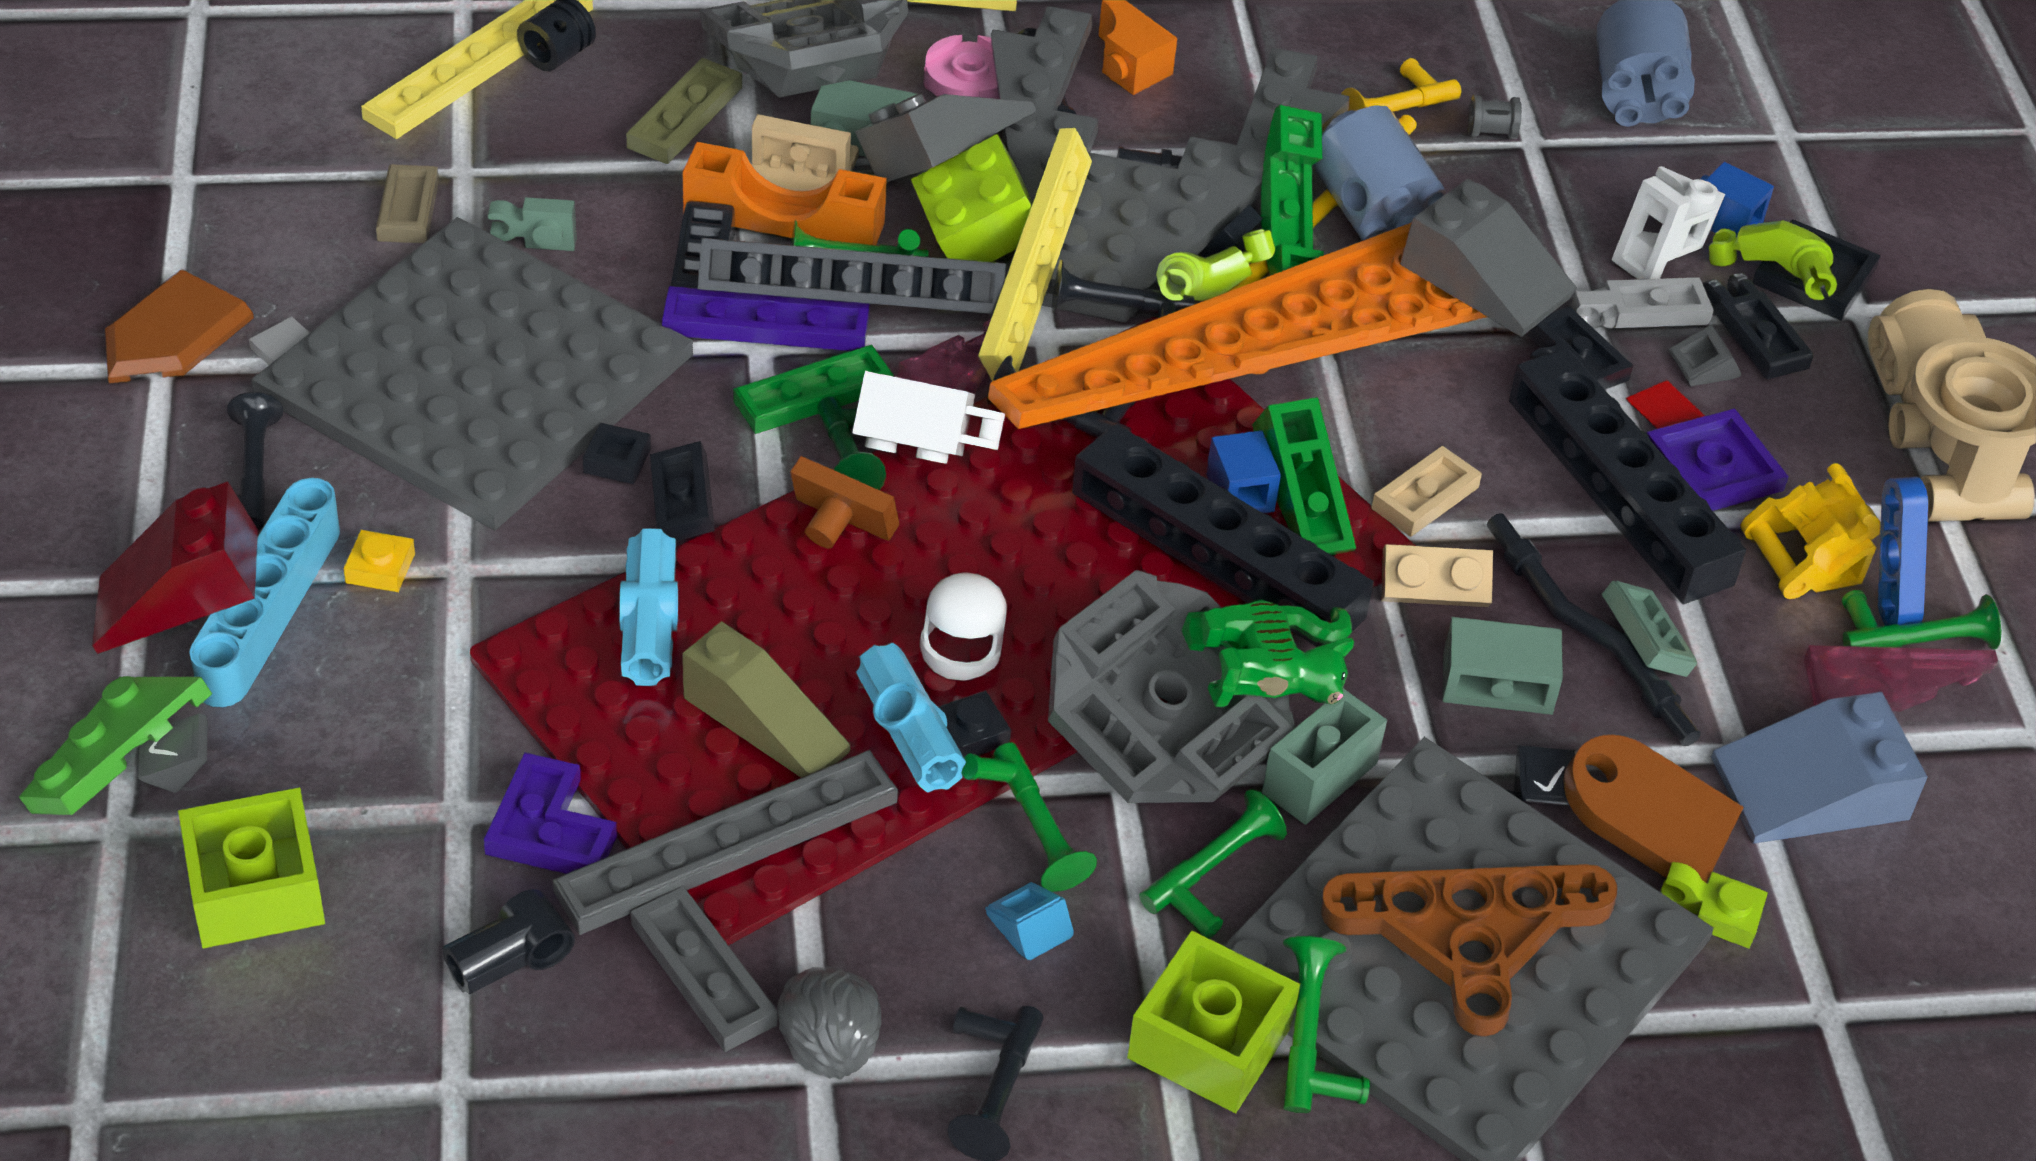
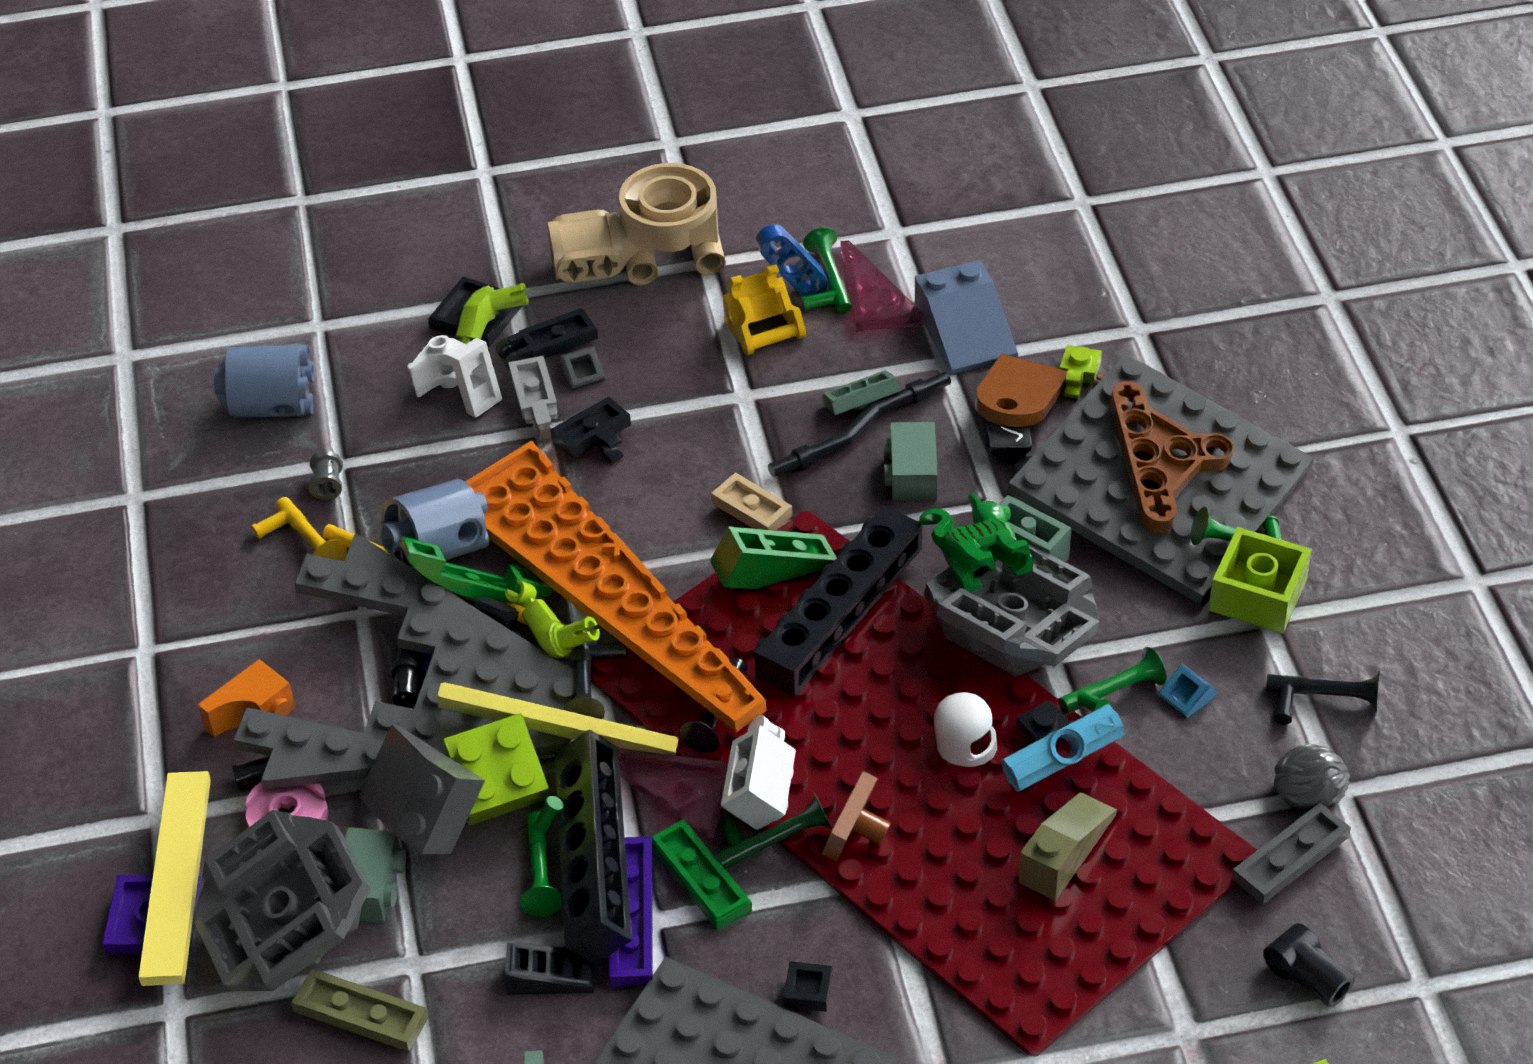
camera: 90 degrees left, 0 degrees up
(535, 822) = (1192, 974): dark purple plate -> none
(648, 607) = (986, 923): medium azure piece -> none
(682, 491) = (845, 933): black plate -> none
(724, 841) = (1188, 852): dark grey tile -> none
(799, 153) = (432, 912): tan bracket -> none
(842, 210) = (501, 877): orange arch -> none
(1245, 469) = (772, 589): blue brick -> none
(1257, 820) = (1143, 619): green piece -> none
(1437, 575) = (835, 496): tan plate -> none
(1486, 258) = (521, 465): dark grey slope -> none
(1627, 476) = (716, 403): black brick -> none
(1664, 405) = (640, 386): red sticker -> none
(1721, 459) = (693, 361): dark purple plate -> none
(1744, 198) = (412, 339): blue brick -> none

